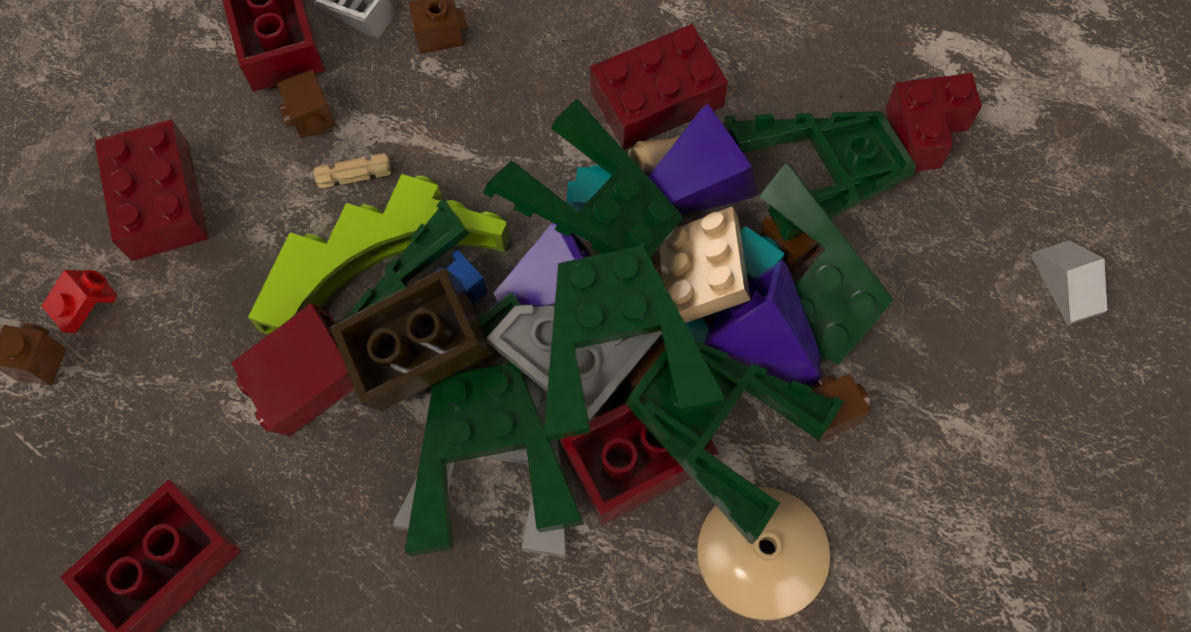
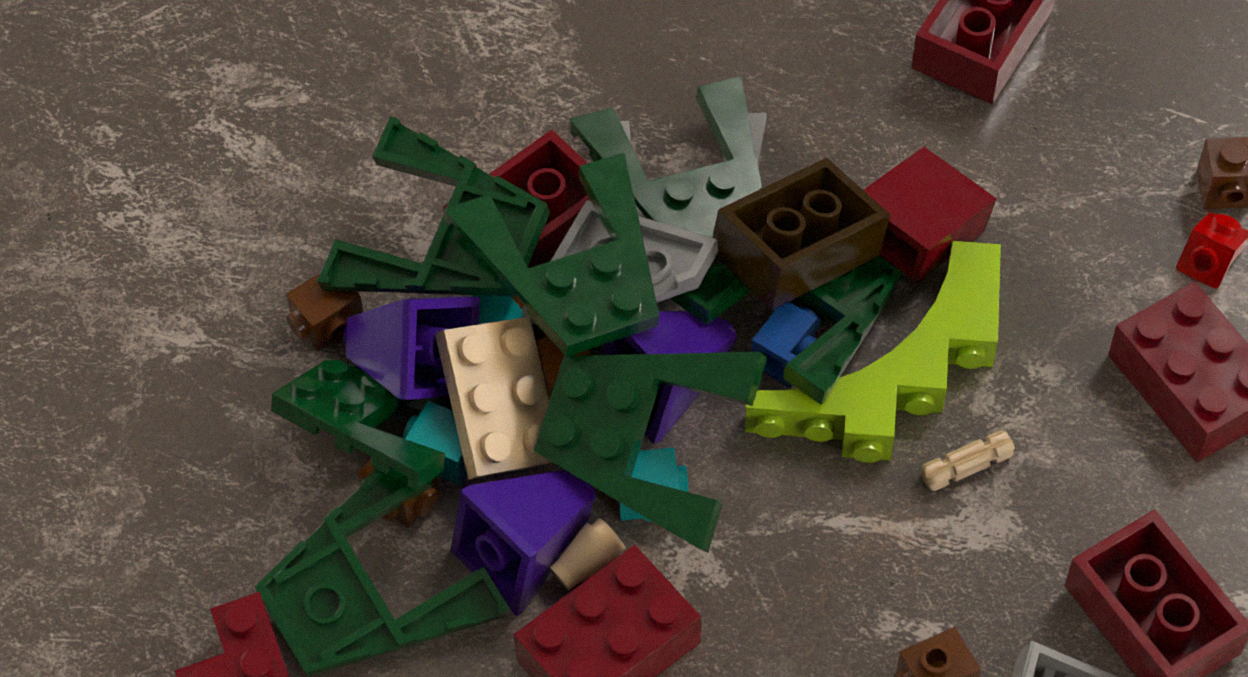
camera: 165 degrees right, 10 degrees down
(305, 105) = (1060, 519): reddish brown brick -> none
(760, 583) = (369, 196): tan dish -> none
(1074, 280) = (57, 517): light grey slope -> none

